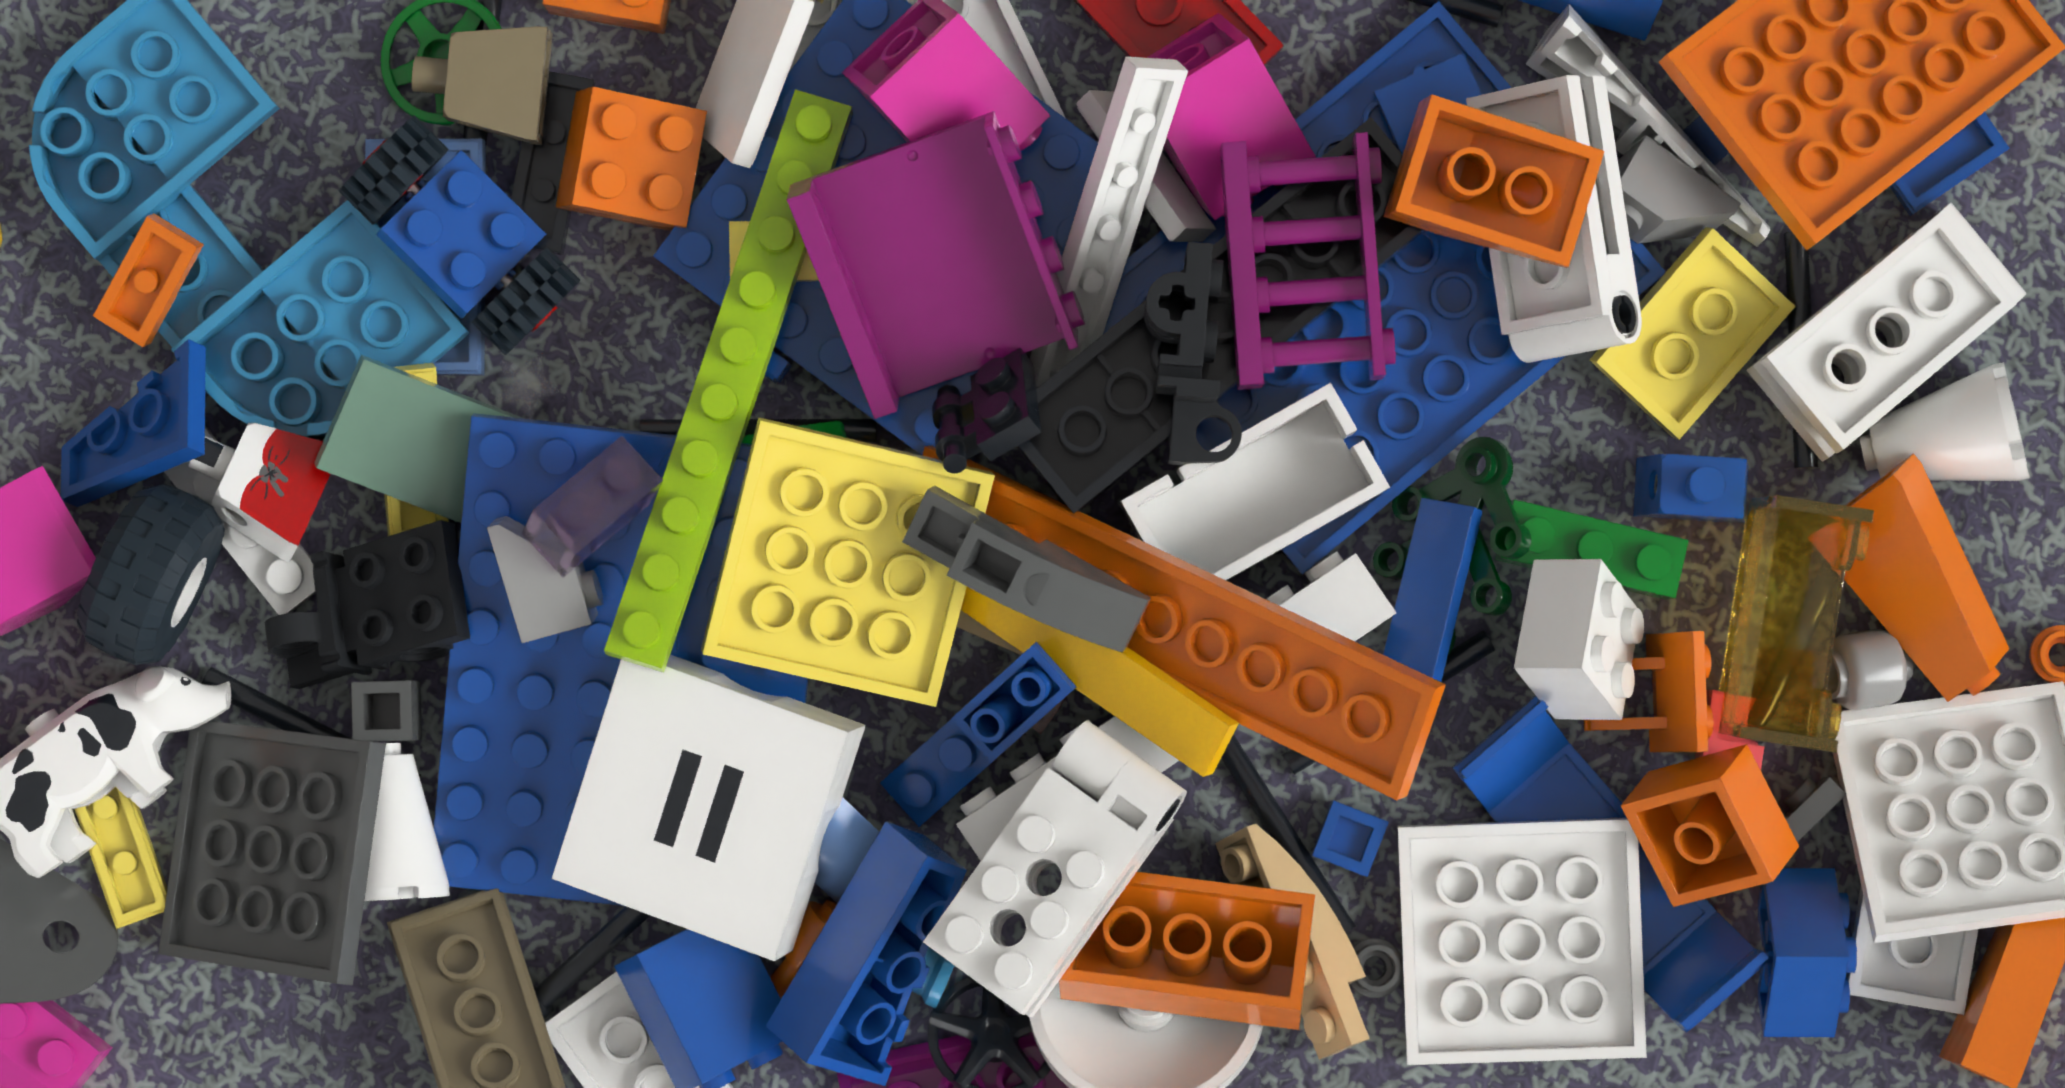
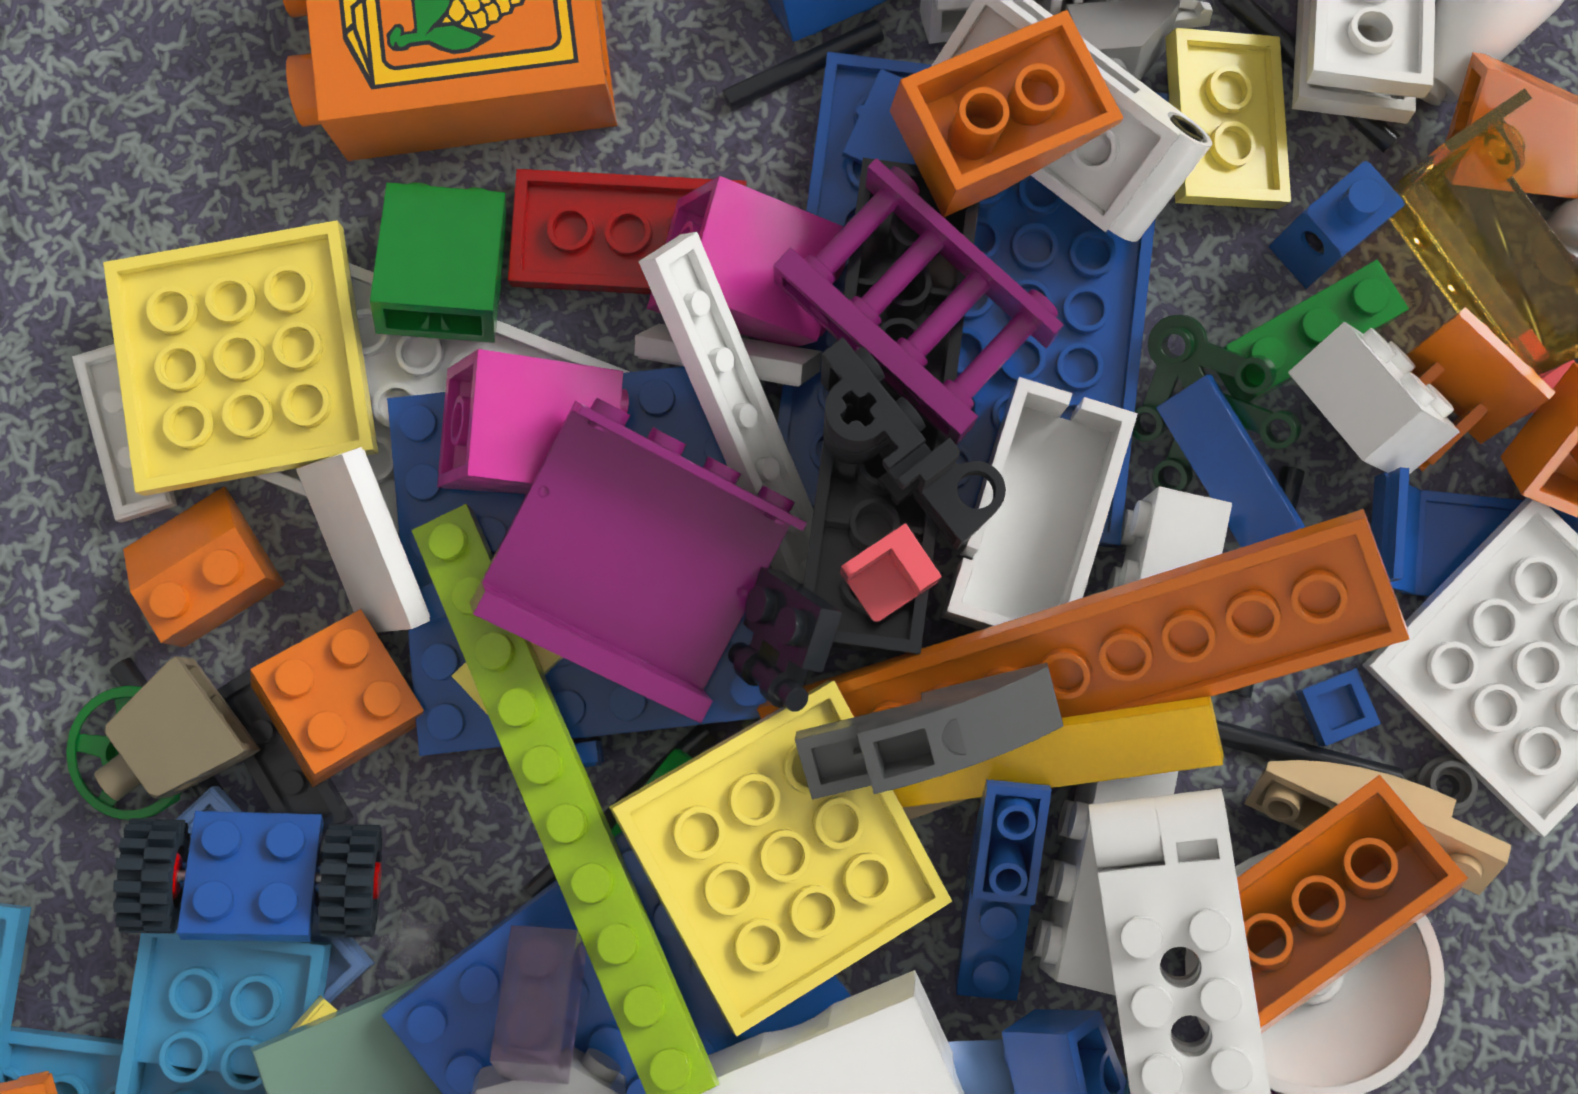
camera: 45 degrees left, 5 degrees down
(1101, 437) = (890, 573): none -> coral panel

